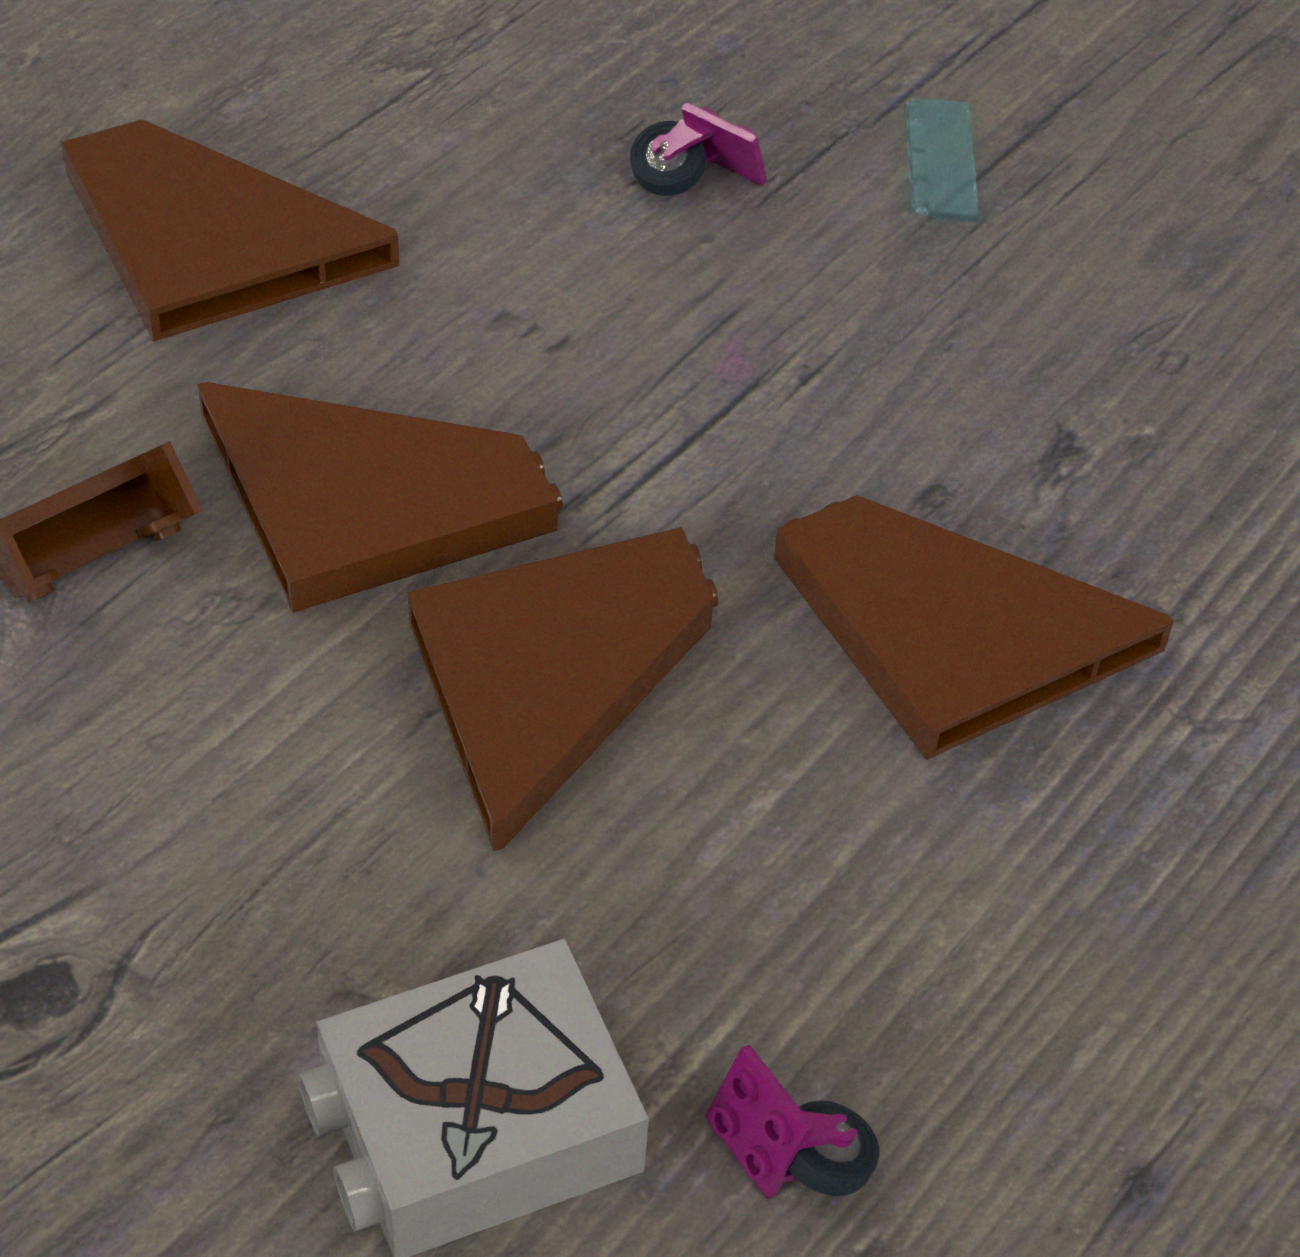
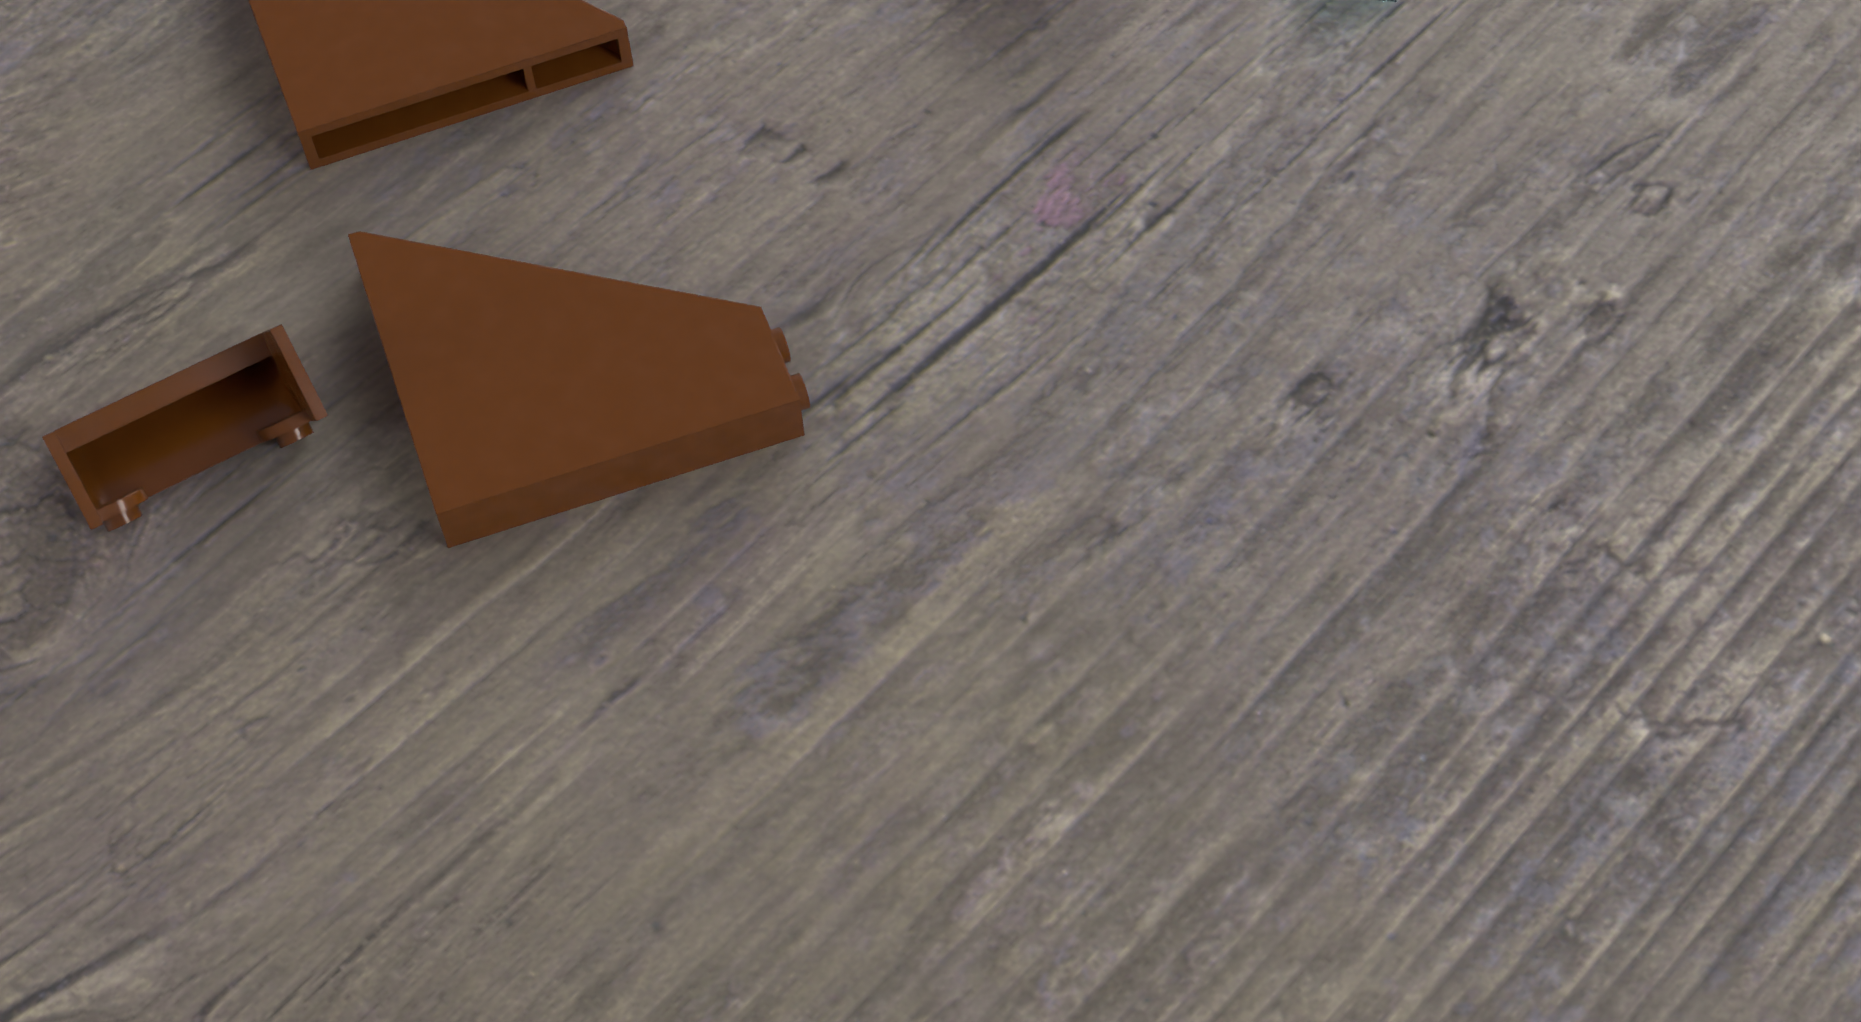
camera: 10 degrees right, 5 degrees up
(554, 659) = (778, 622): reddish brown slope -> none
(953, 626) = (1326, 583): reddish brown slope -> none

